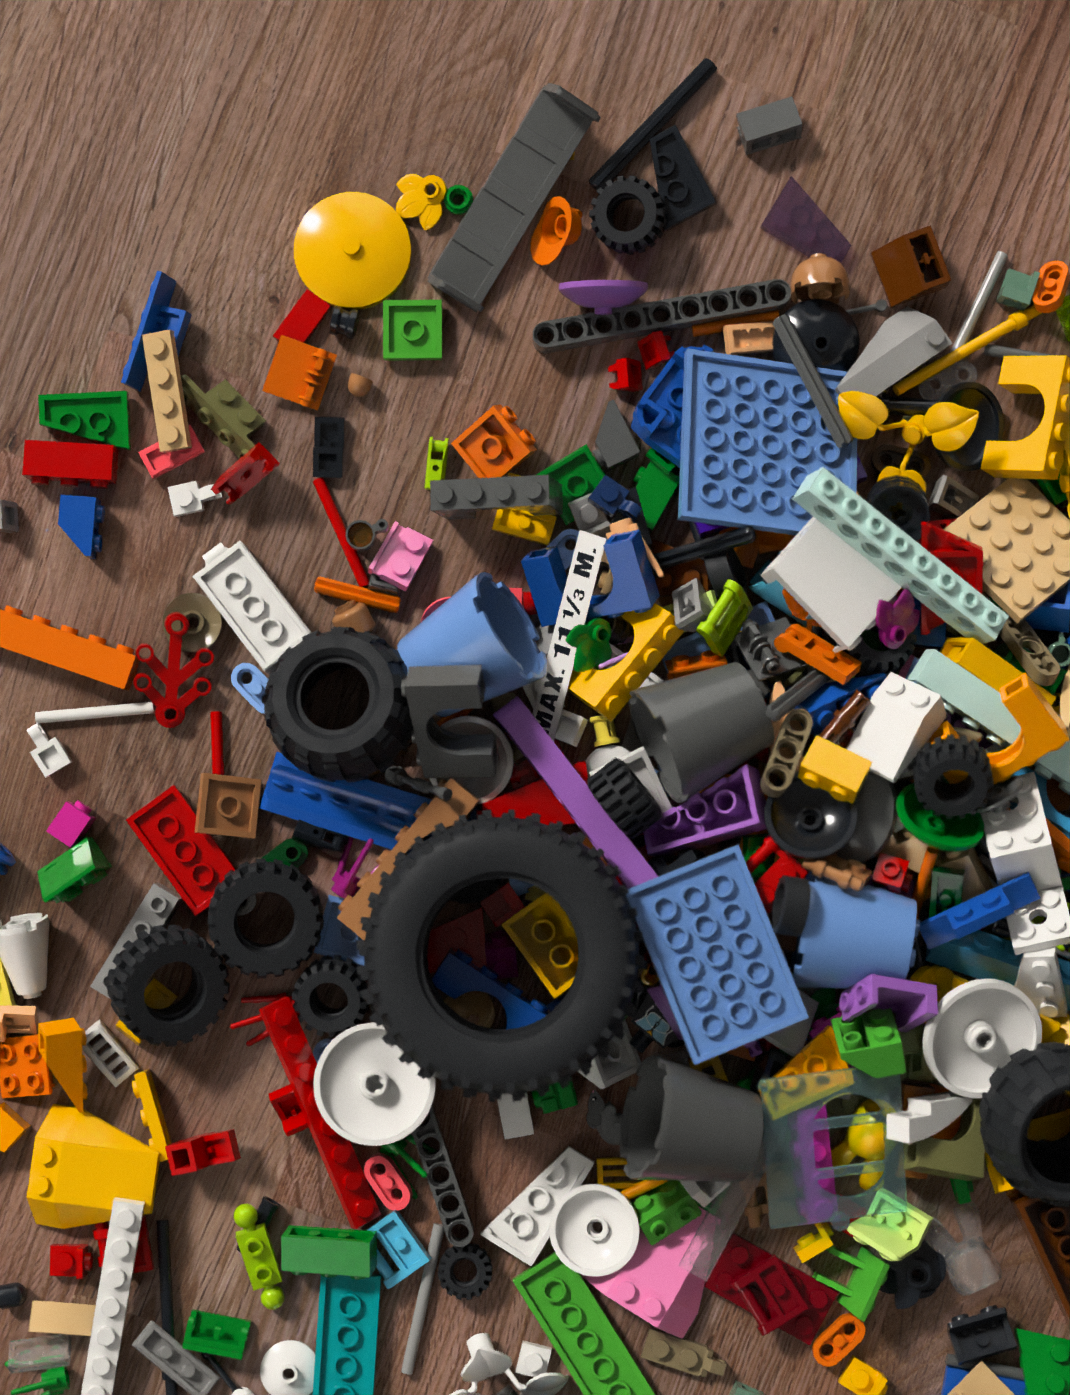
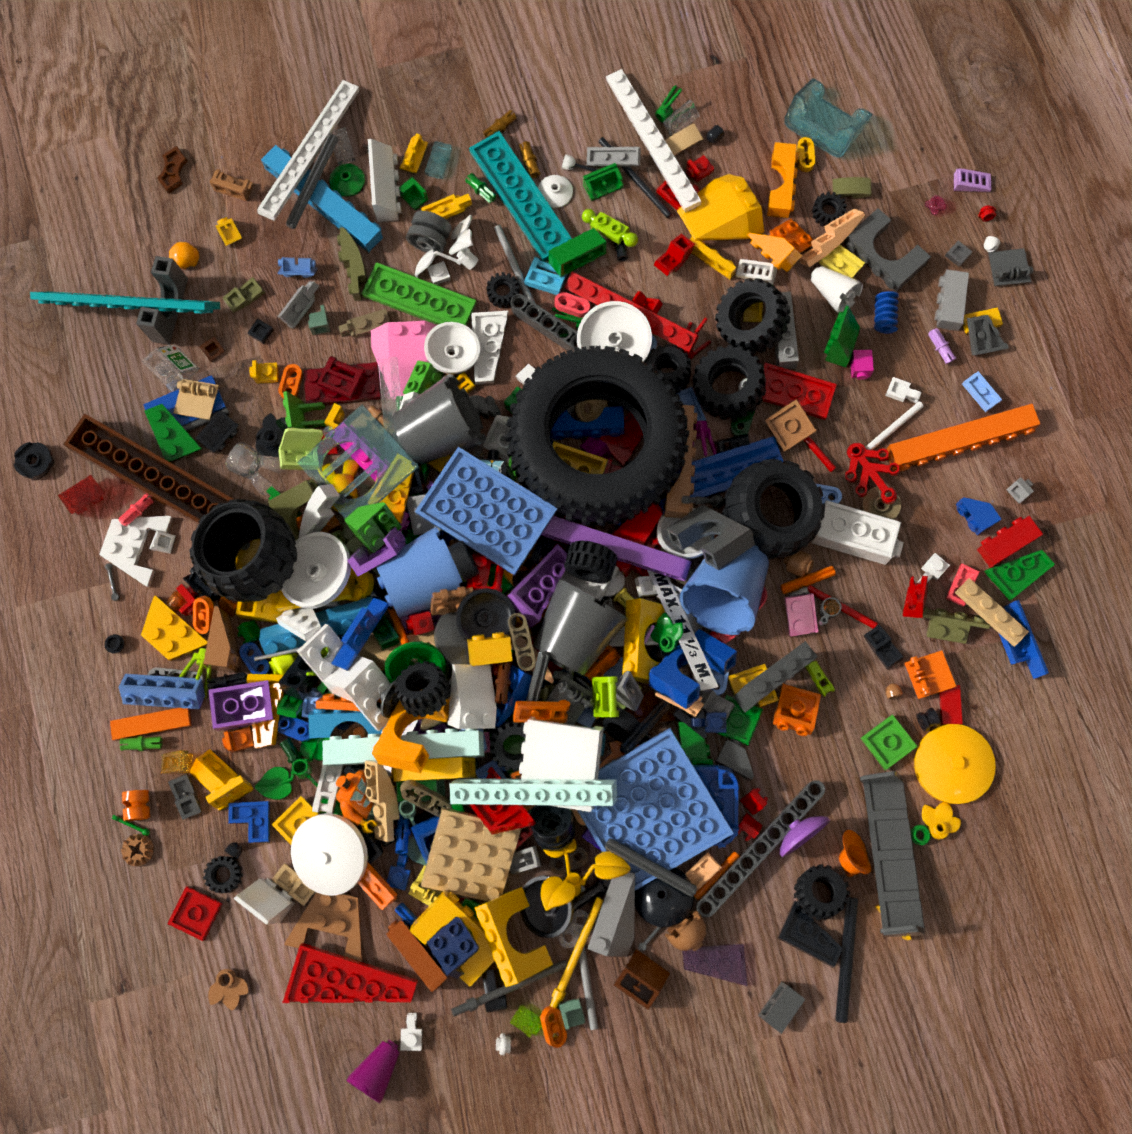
camera: 150 degrees right, 10 degrees down
(896, 620) = (510, 758): magenta plate -> none

